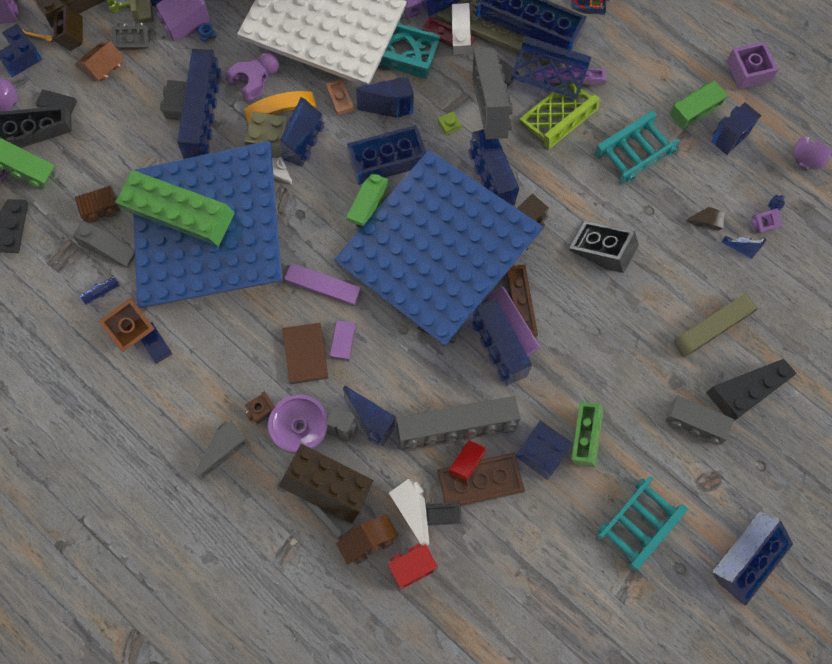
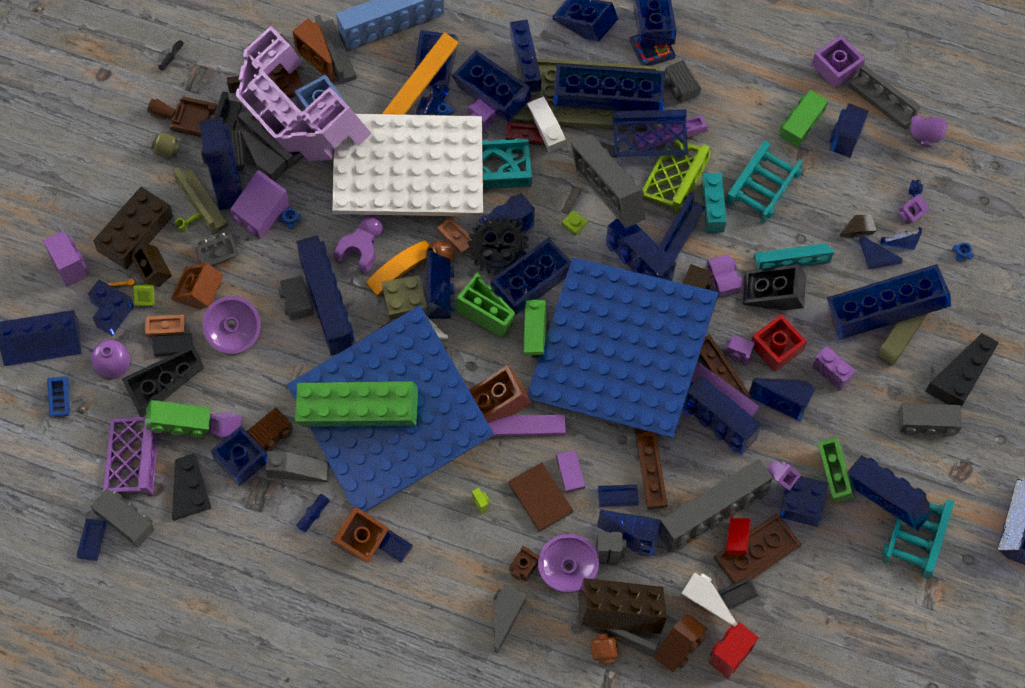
camera: 20 degrees left, 5 degrees down
(52, 52) = (144, 295): none -> lime plate
(56, 83) = (165, 325): none -> nougat plate
(58, 215) = (239, 455): none -> clear blue brick
(63, 185) = (224, 423): none -> medium lavender panel
(97, 98) = (240, 336): none -> medium lavender dish
(249, 335) = (481, 500): none -> lime plate
(295, 516) = (604, 648): none -> dark orange head
(308, 248) = (500, 395): none -> dark orange slope
(321, 103) = (442, 248): none -> dark orange head
(332, 166) = (484, 307): none -> bright green wedge
(373, 100) = (499, 228): none -> black gear
(375, 378) = (618, 495): none -> clear blue tile
(415, 368) = (651, 470): none -> reddish brown plate
(532, 419) = (783, 474): none -> medium lavender brick
(541, 161) = (682, 227): none -> clear blue fence
(546, 288) = (739, 349): none -> medium lavender brick
(562, 217) = (724, 275): none -> medium lavender brick
(569, 346) = (783, 395): none -> clear blue slope
(581, 149) = (713, 195): none -> teal arch
(584, 295) = (778, 343): none -> red brick
(600, 34) = (682, 81): none -> dark grey brick
(627, 338) = (833, 368): none -> medium lavender brick
(628, 477) = (890, 492): none -> clear blue brick
(641, 225) = (802, 255): none -> teal fence
(706, 296) = (889, 301): none -> clear blue brick
(714, 251) = (876, 255): none -> clear blue tile
(781, 112) = (883, 97): none -> dark grey fence
(801, 273) = (966, 247): none -> blue plate

